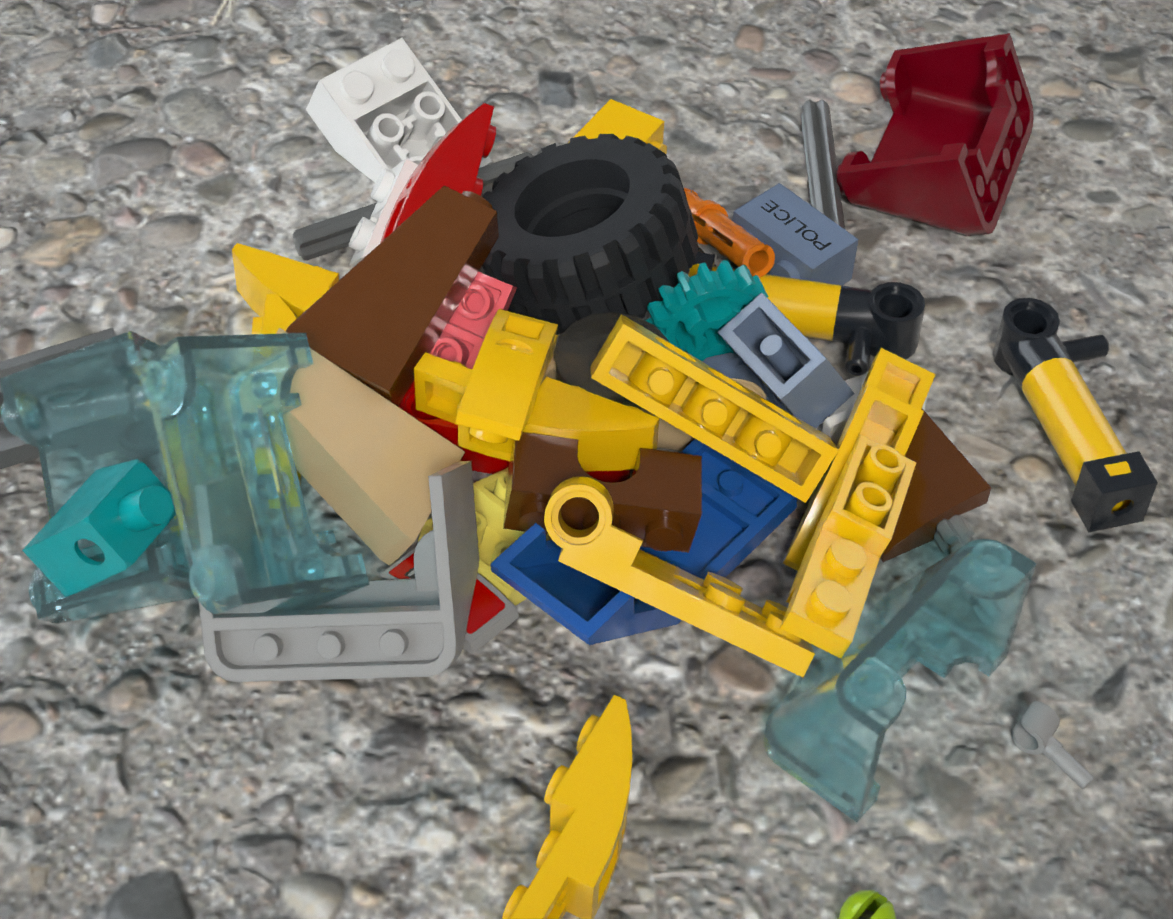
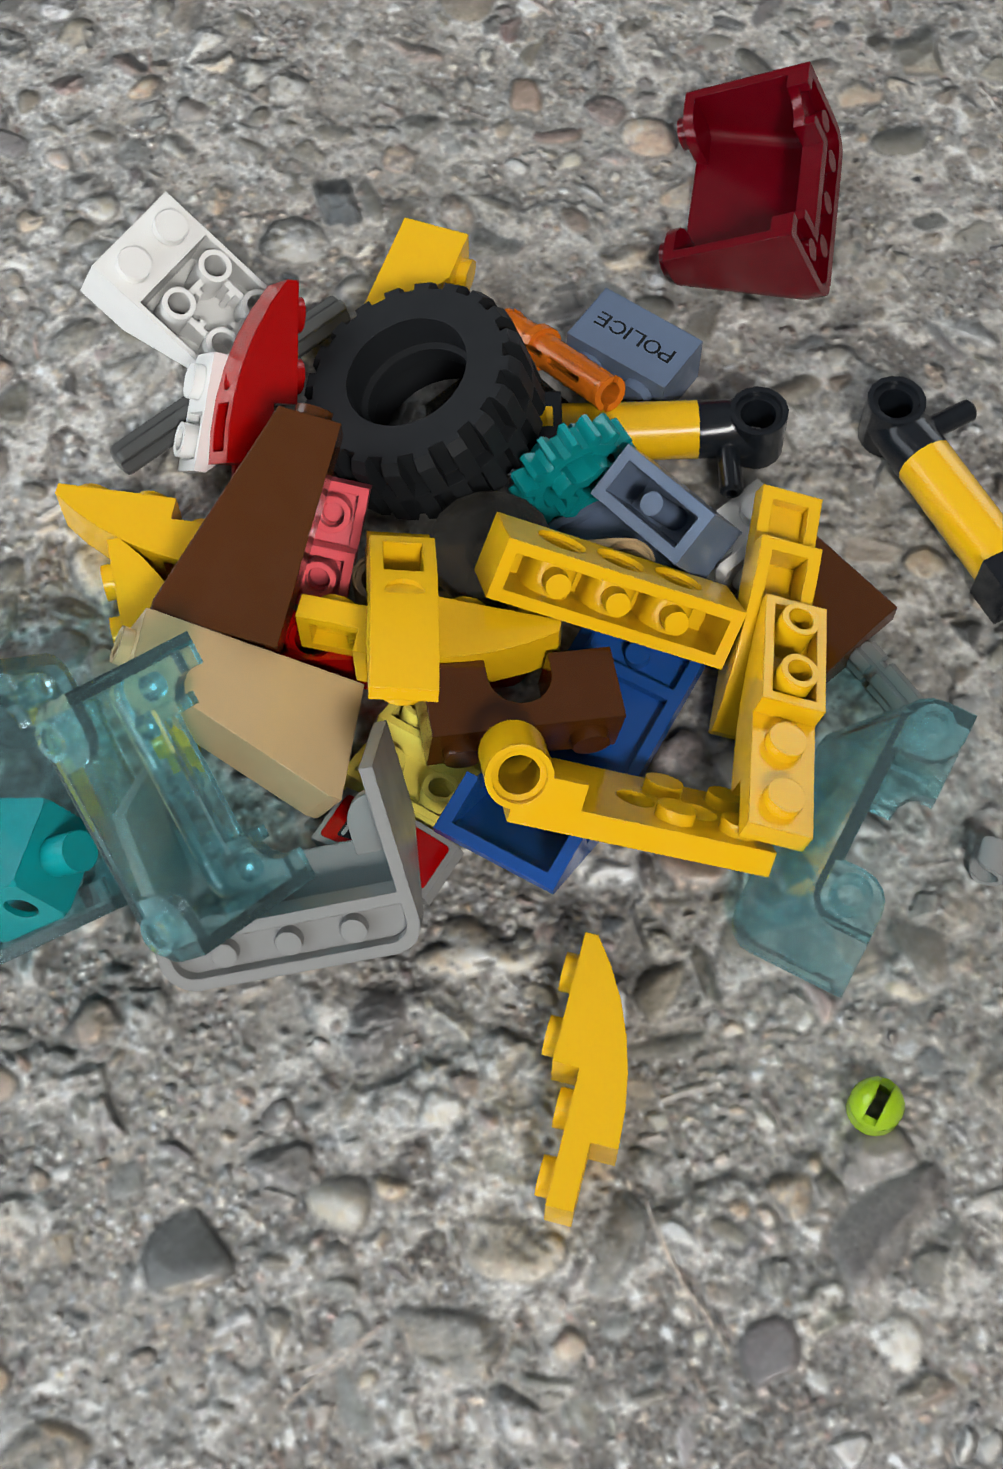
camera: 10 degrees left, 15 degrees up
(821, 160) = (638, 245): dark grey axle -> none

